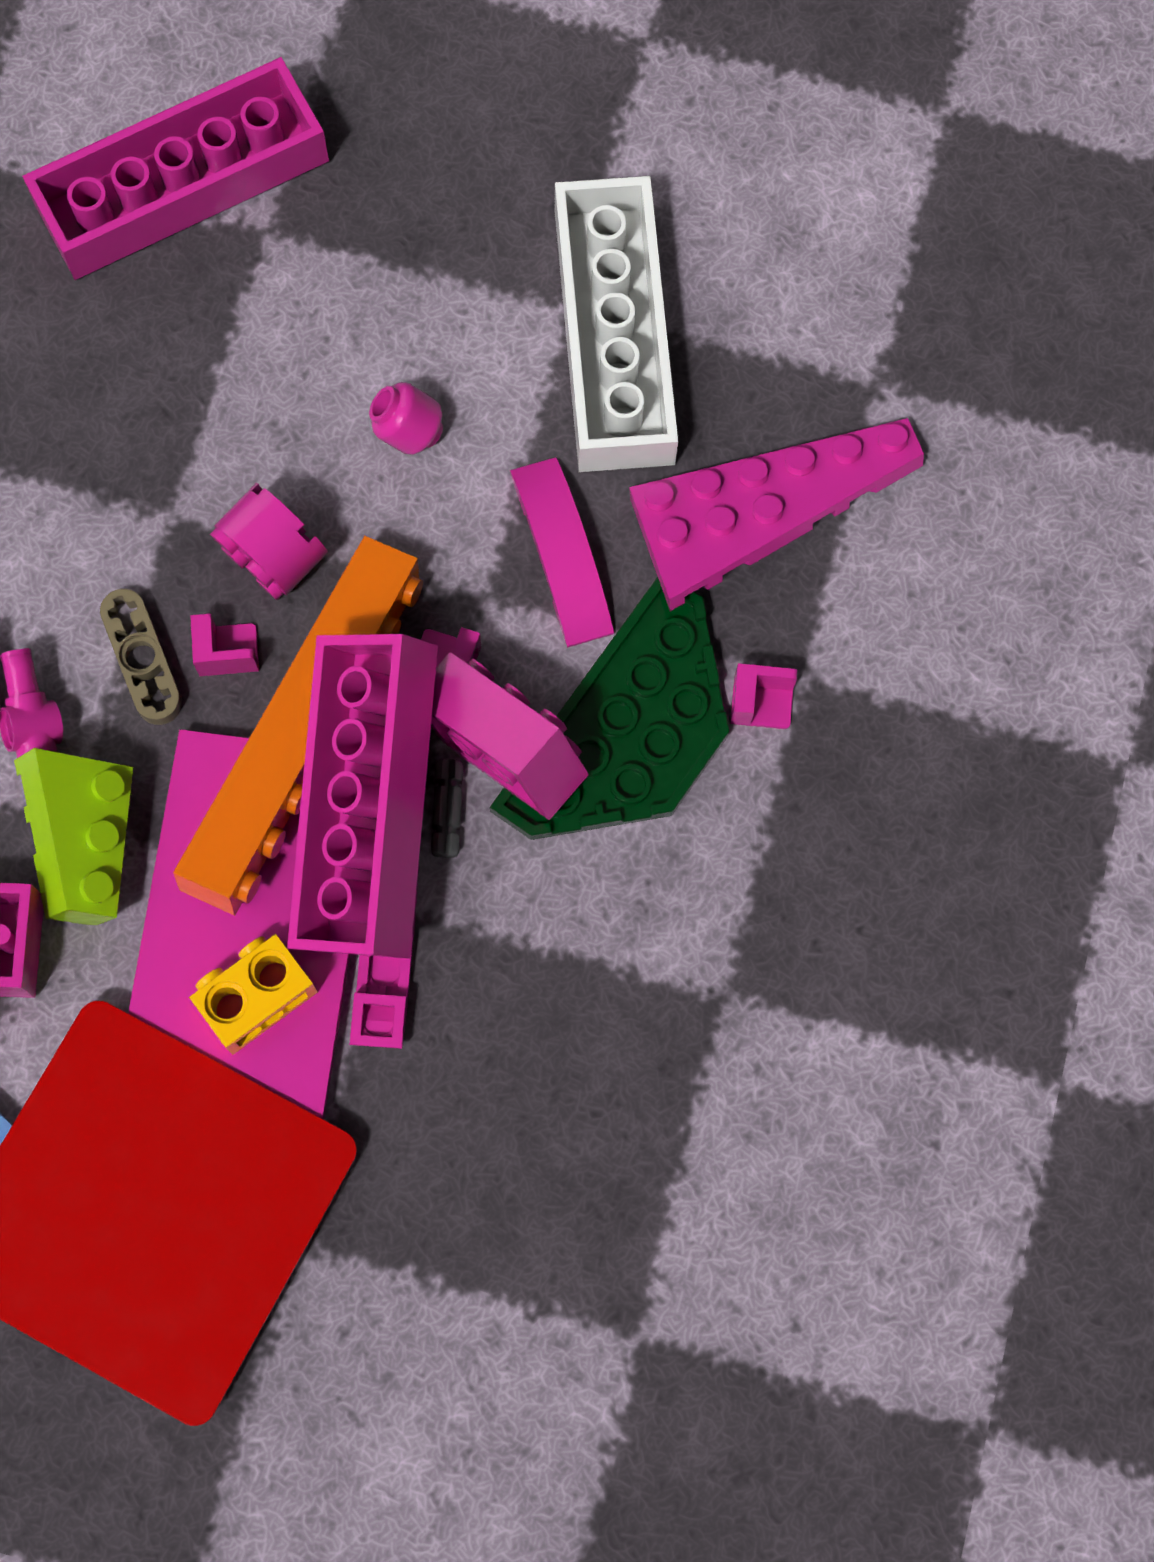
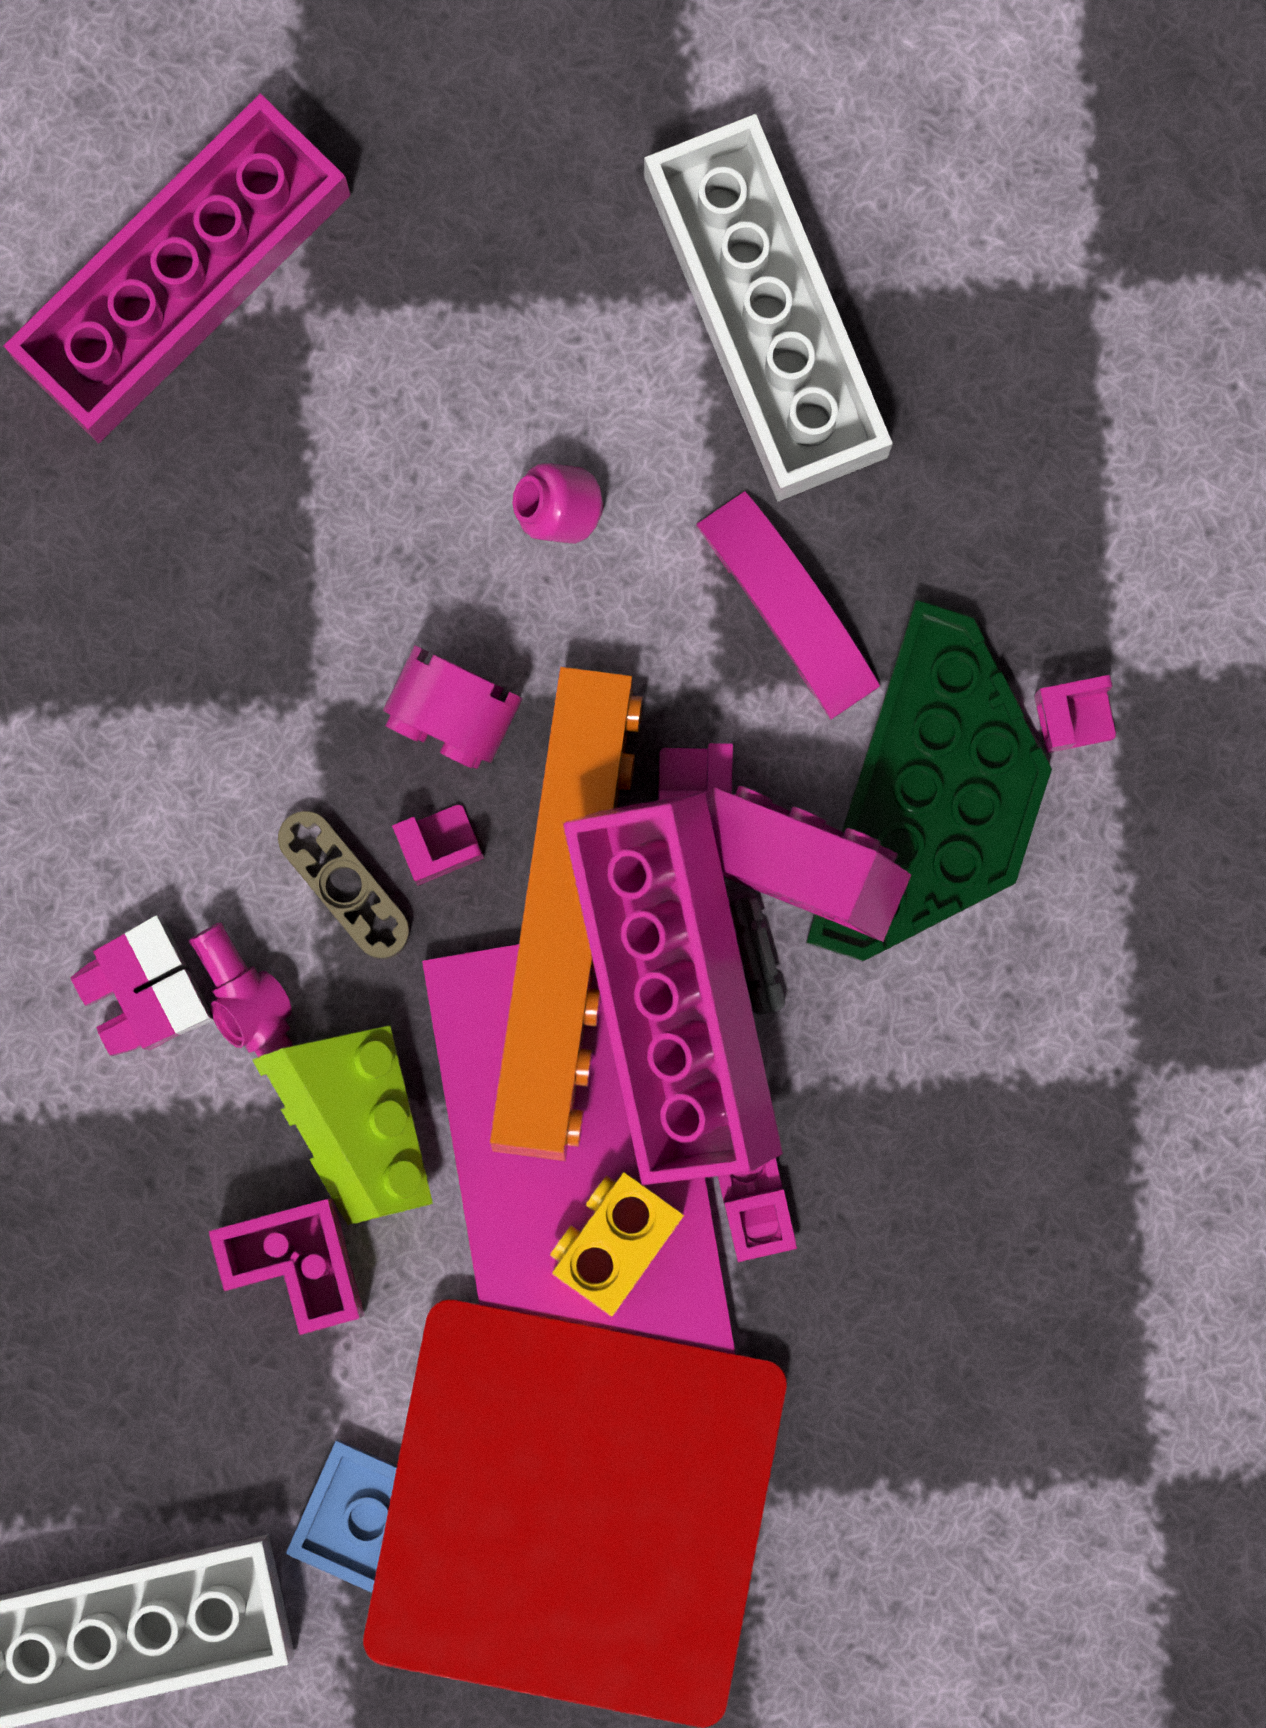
camera: 15 degrees left, 10 degrees up
(753, 506) = (994, 489): dark pink wing -> none

